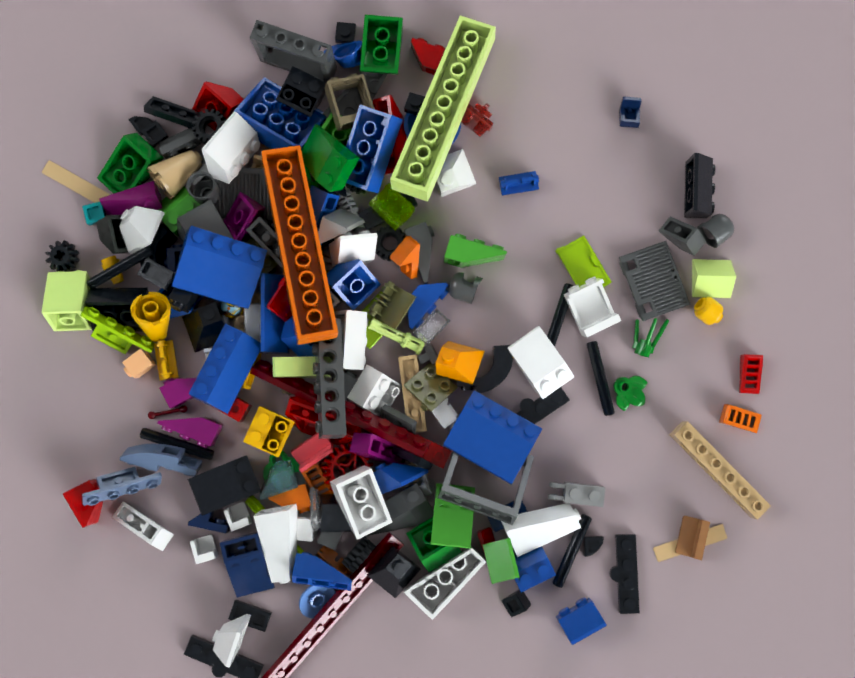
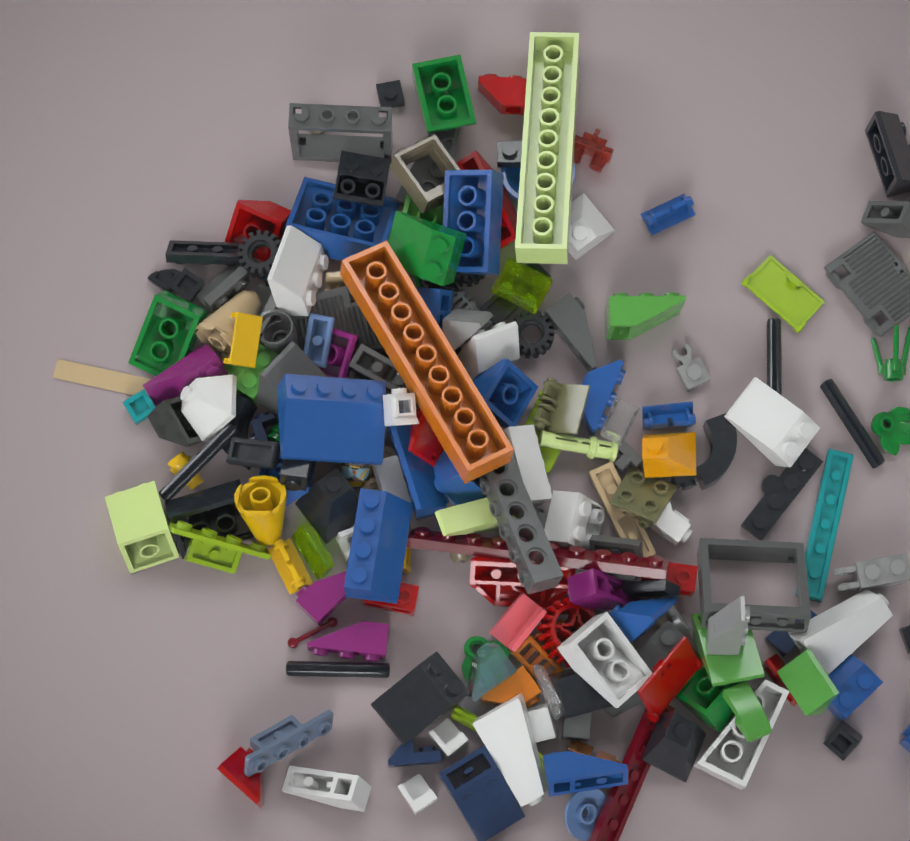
camera: 20 degrees left, 10 degrees down
(57, 253) = (122, 466): black gear -> none
(138, 363) = (257, 580): light nougat brick -> none
(156, 455) = (312, 692): sand blue slope -> none
(175, 188) = (244, 340): none -> yellow hinge
(183, 349) = (313, 550): none -> clear neon green plate
(232, 202) = (319, 338): none -> medium blue slope
(269, 274) = (399, 408): none -> white window
(269, 431) = (455, 614): yellow slope -> none
(347, 54) = (406, 118): blue piece -> none
(358, 554) = (621, 735): black tyre -> none
(403, 526) = (669, 678): none -> red door
(407, 257) = (562, 341): orange slope -> none
(450, 569) = (748, 711): none -> bright green slope
(452, 509) = (728, 628): none -> light grey slope
(462, 289) = (643, 365): dark grey helmet -> none
(463, 332) = (668, 415): none -> blue hinge
(492, 437) = (744, 530): blue slope -> none
(497, 305) = (691, 371): none -> light grey plate
(557, 444) = (826, 521): none -> teal tile
(572, 551) = (891, 652): black axle -> none
(591, 307) = (810, 338): white panel -> none
(630, 112) = (776, 89): dark blue bracket -> none

